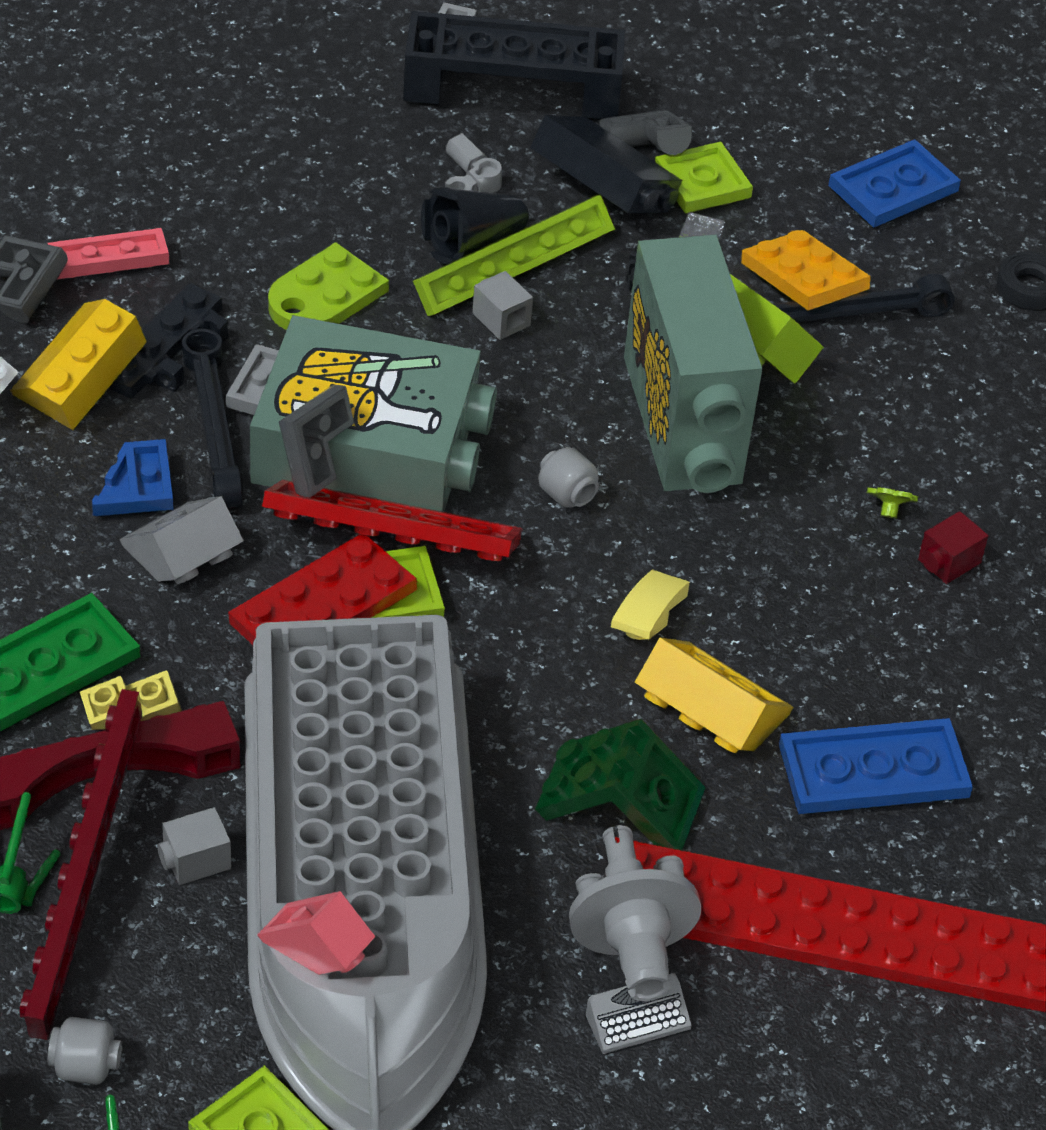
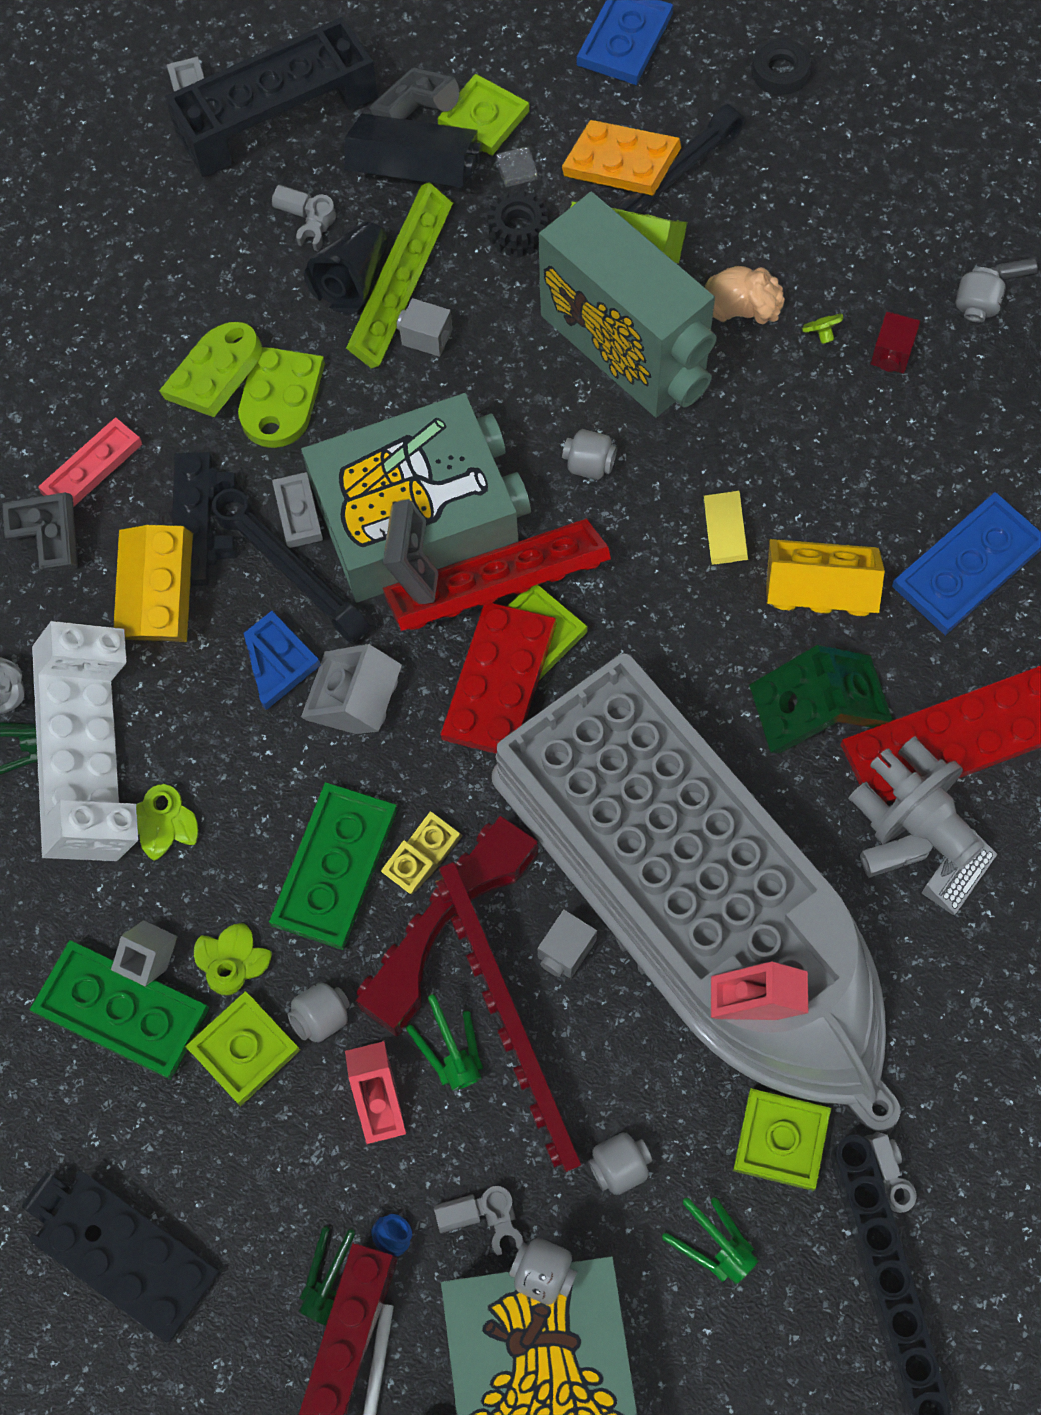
camera: 25 degrees left, 20 degrees up
(281, 238) = (214, 368): none -> lime plate
(584, 963) = (894, 855): none -> light grey bar
(834, 433) = (746, 294): none -> light nougat hair

